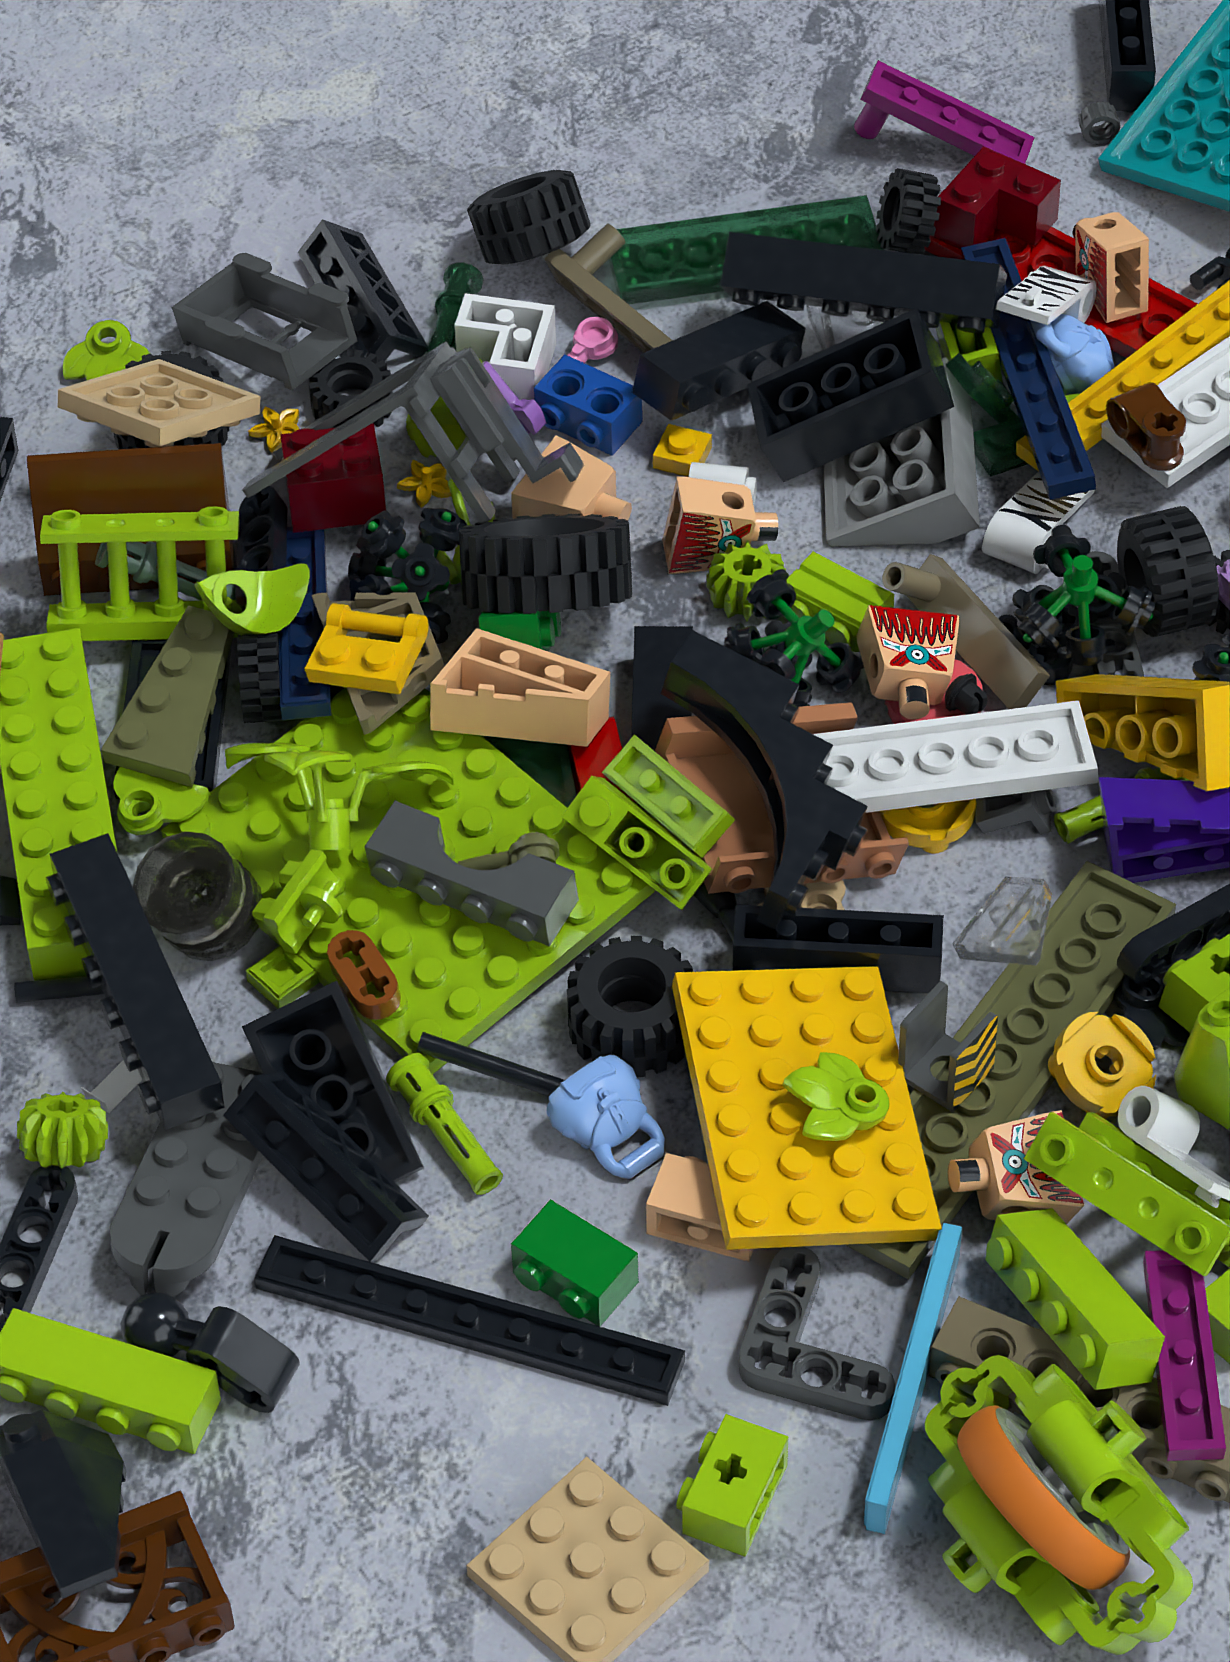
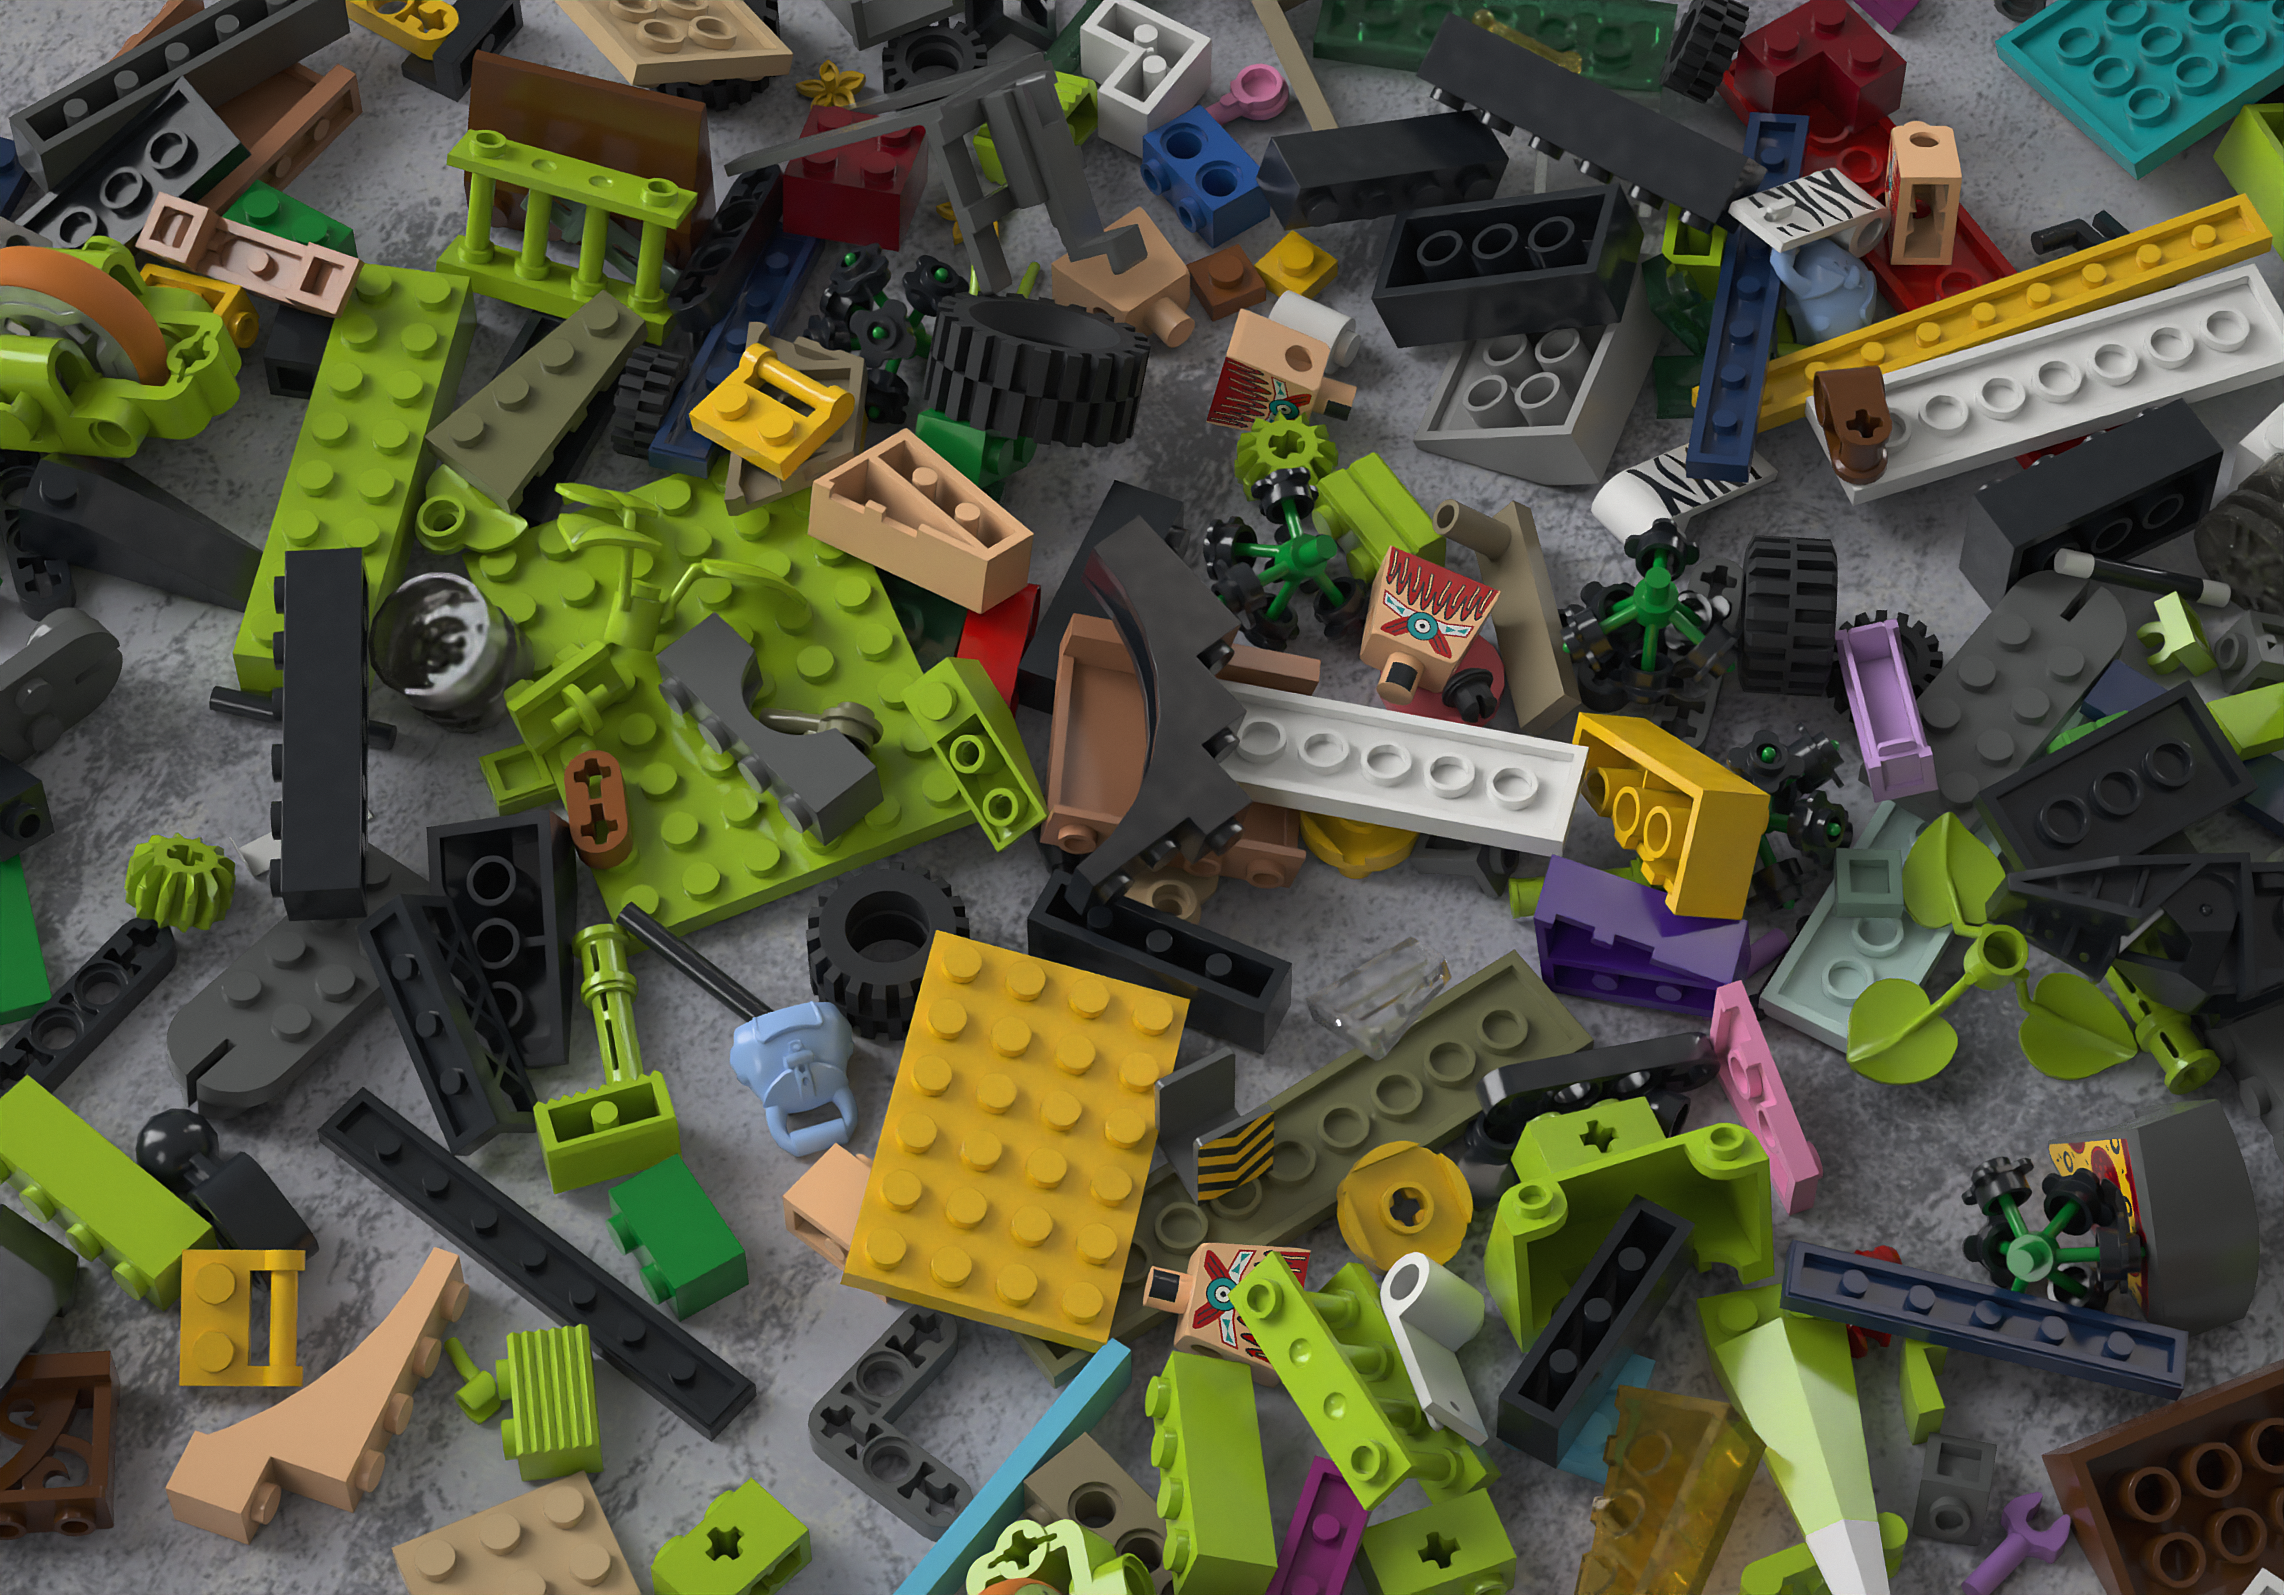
camera: 20 degrees right, 5 degrees up
(251, 1439) = (219, 1318): none -> yellow plate
(270, 596) = (700, 311): lime piece -> none
(373, 1500) = (330, 1433): none -> light nougat arch
(476, 1426) = (479, 1395): none -> lime hand
(487, 1203) = (607, 1132): none -> lime brick
(527, 411) = (1118, 164): medium lavender bar -> none
(539, 1414) = (552, 1403): none -> lime brick
(639, 474) = (1226, 282): none -> dark orange plate
(668, 796) = (1040, 708): lime tile -> none
(833, 1095) = (1037, 1142): lime plate -> none

